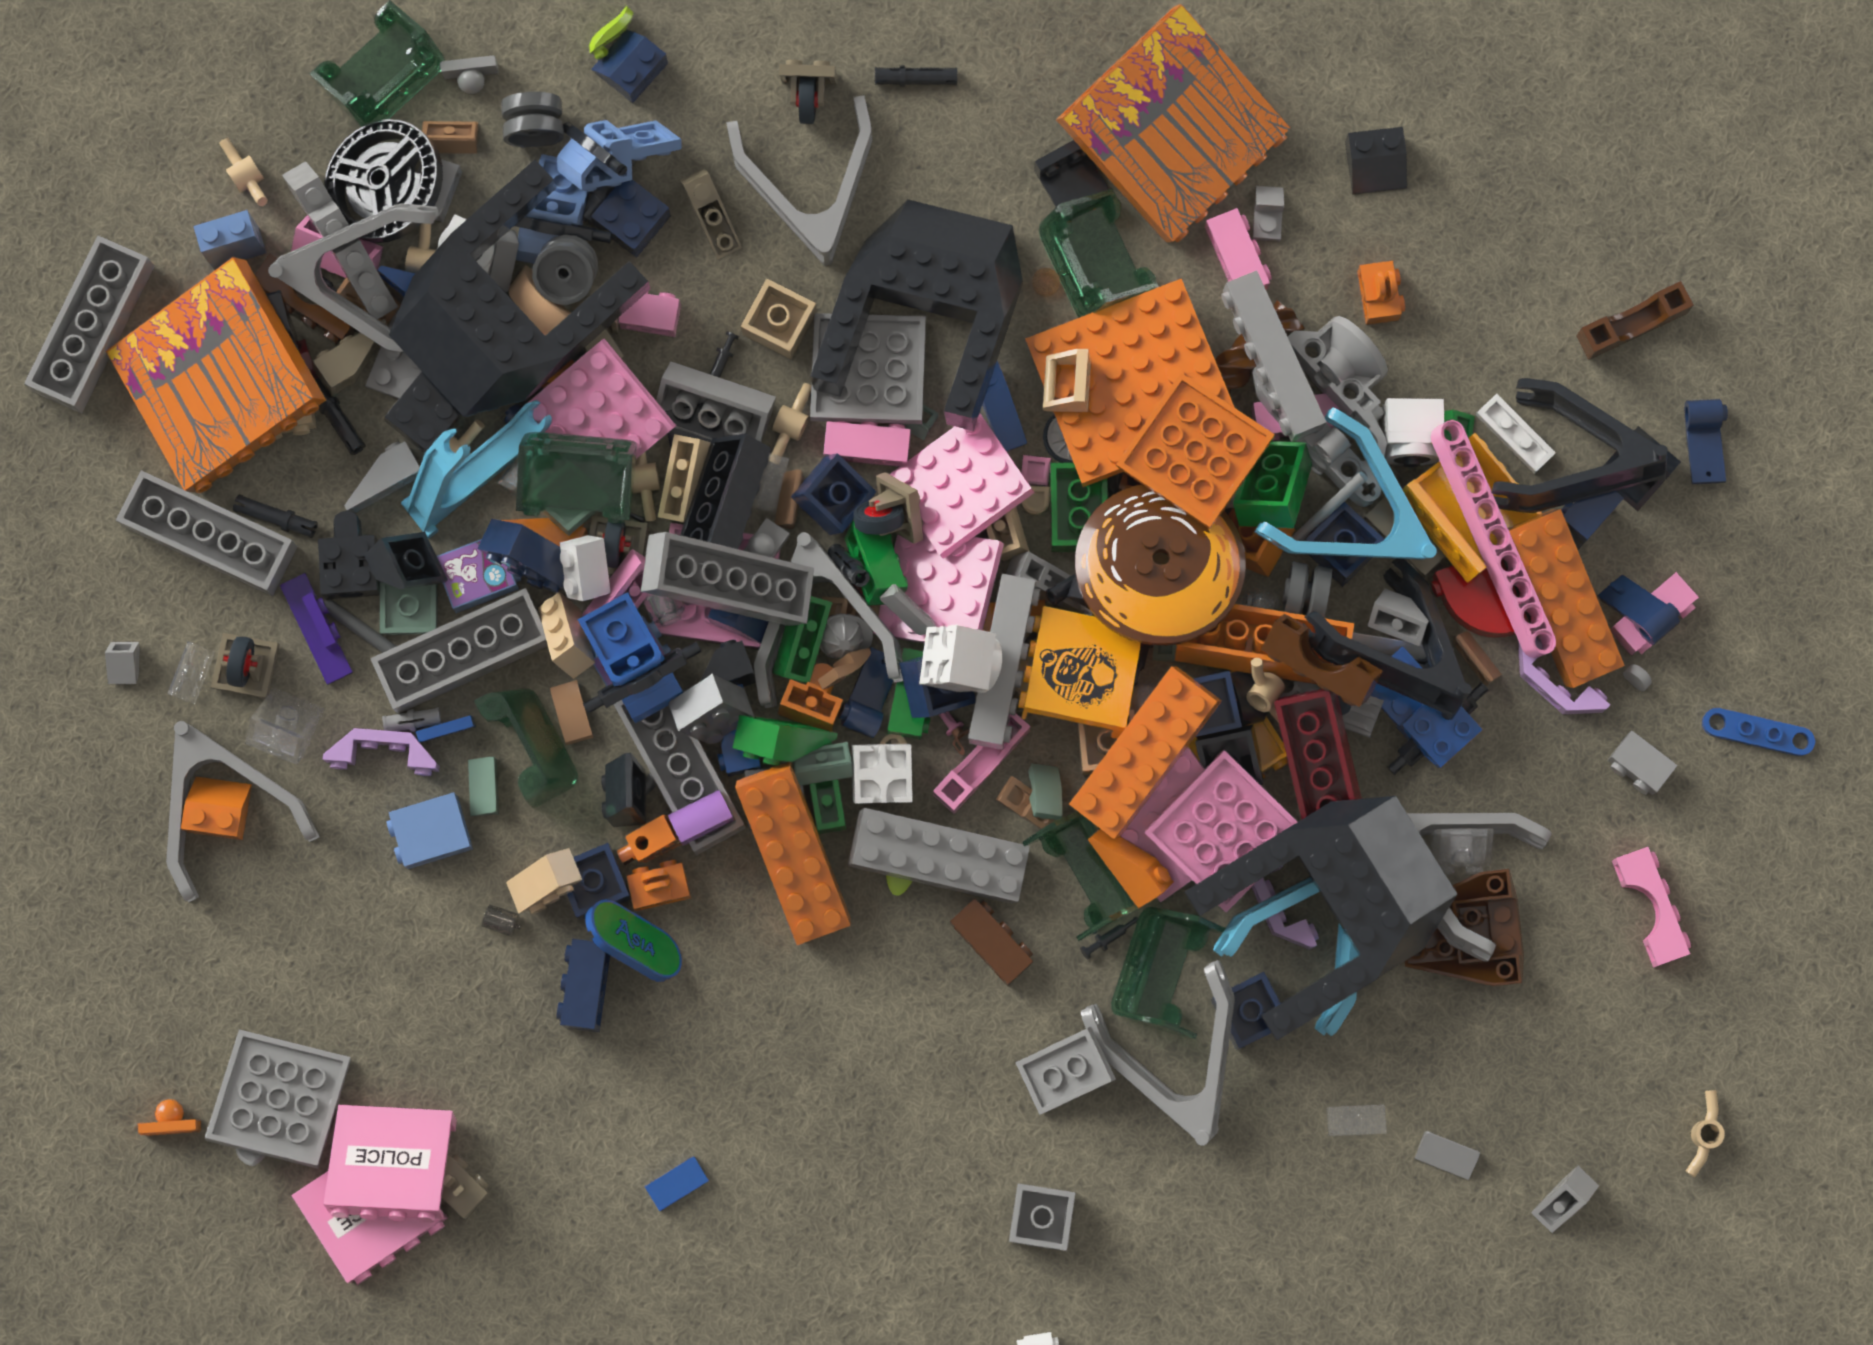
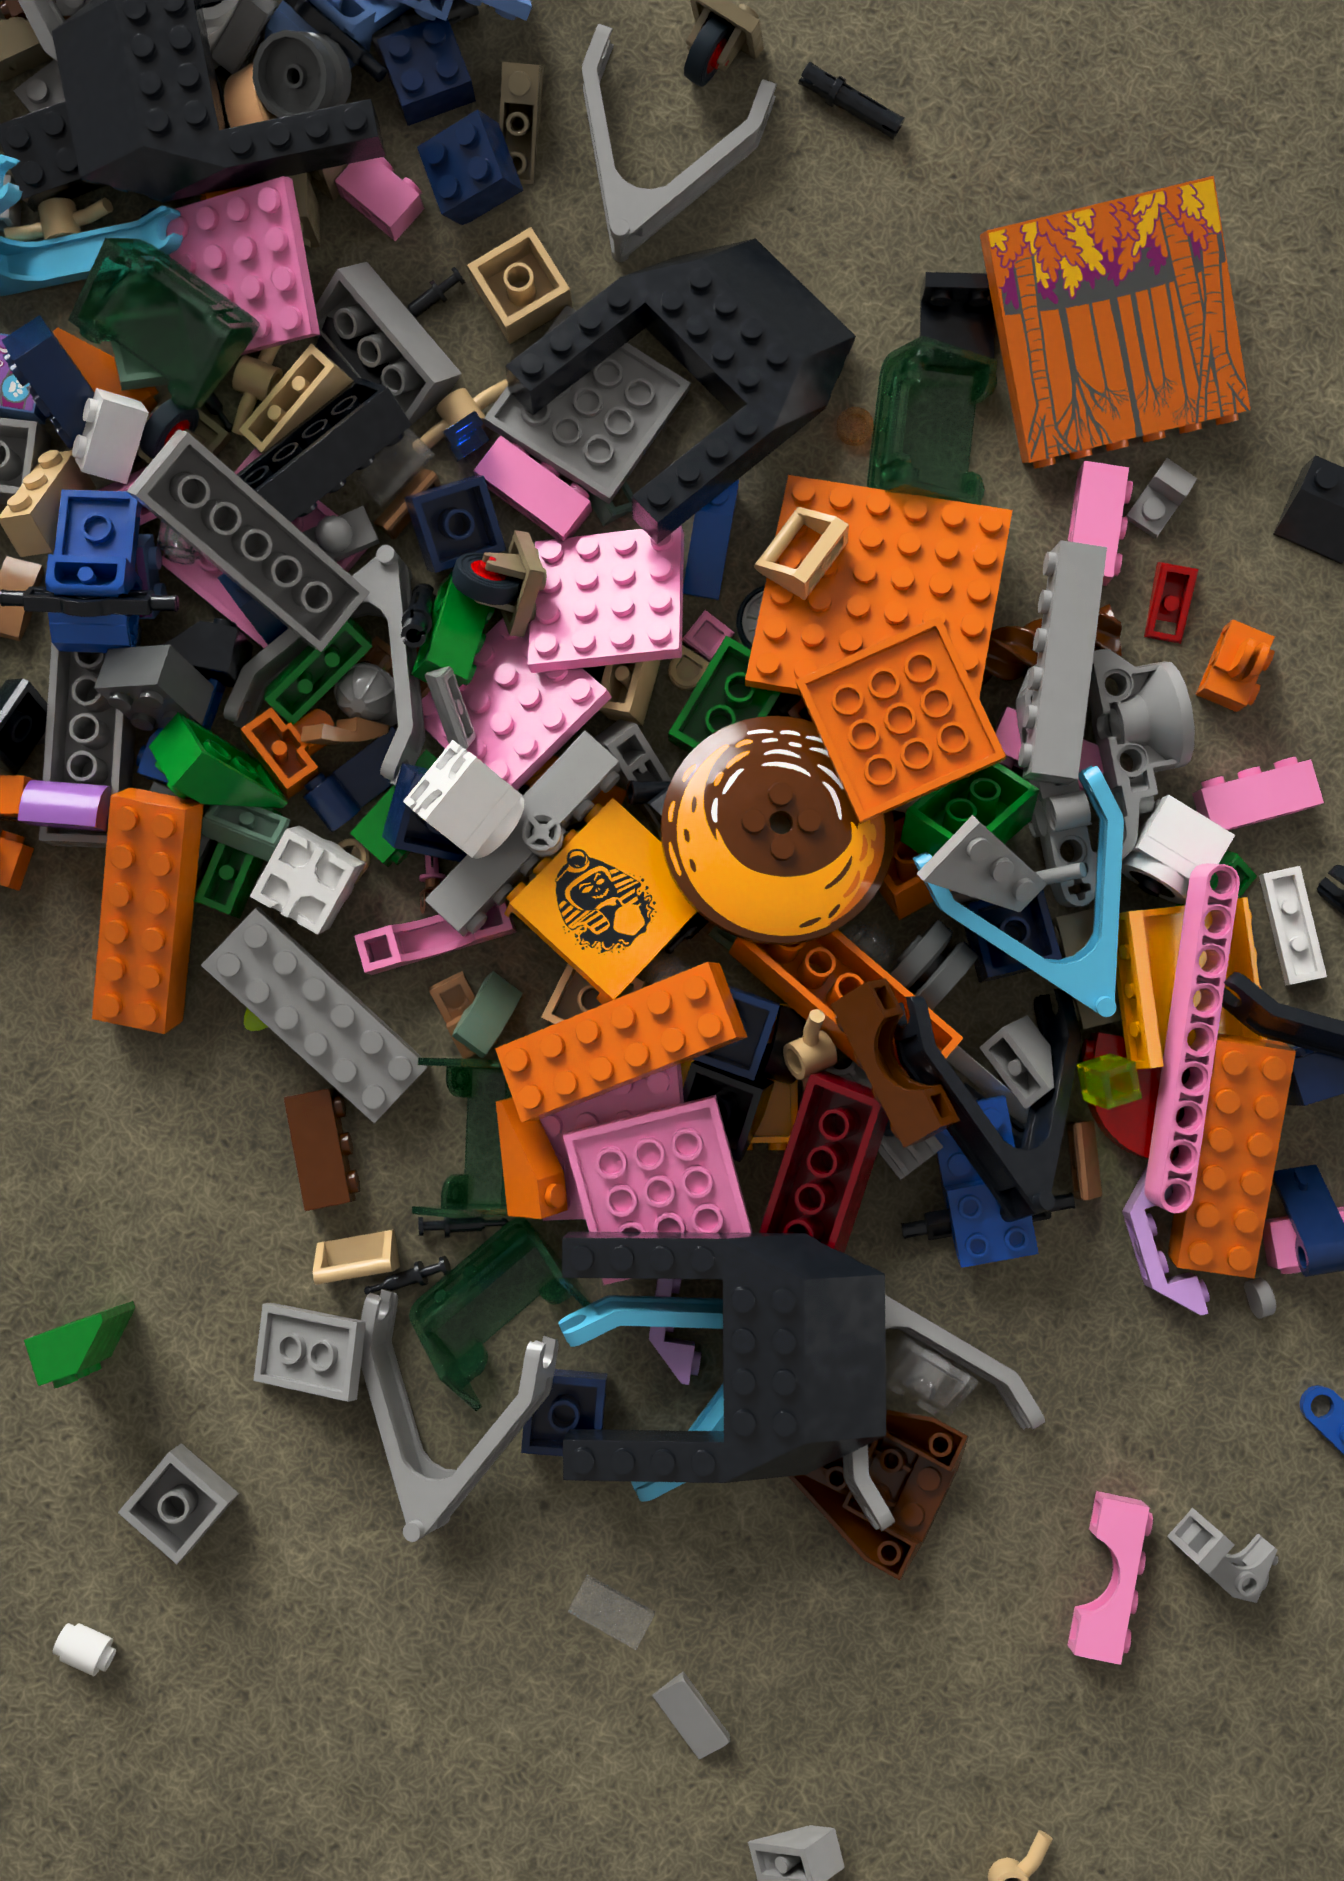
camera: 35 degrees right, 5 degrees up
(701, 263) = (470, 168): none -> dark blue brick
(806, 436) = (465, 436): none -> clear blue slope
(919, 1149) = (78, 1346): none -> green slope
(1019, 646) = (538, 828): none -> light grey wheel
(1057, 995) = (355, 1257): none -> tan tile
(1098, 989) = (415, 1275): none -> black piece
(1302, 511) = (982, 868): none -> light grey wing
(1313, 274) = (1170, 600): none -> red slope
(1444, 364) = (1259, 794): none -> bright pink brick
(1459, 596) = (1109, 1081): none -> clear neon green brick
(1641, 763) = (1202, 1402): light grey brick -> none
(1696, 850) = (1209, 1551): none -> light grey tile

